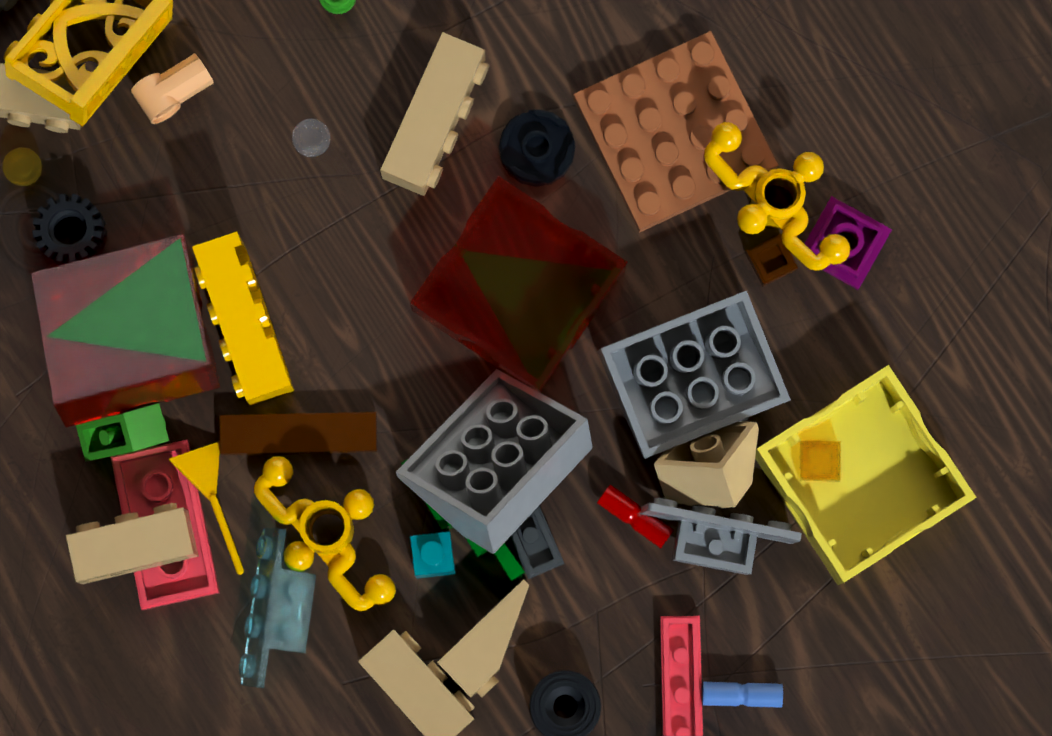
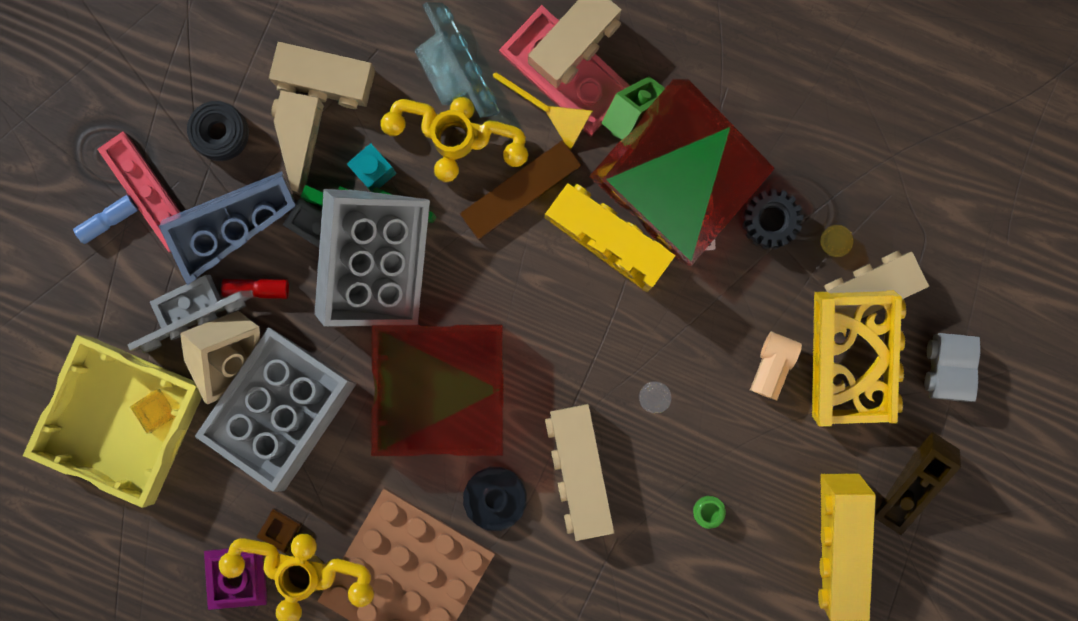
camera: 150 degrees right, 5 degrees up
(616, 598) = (219, 226): none -> sand blue wedge

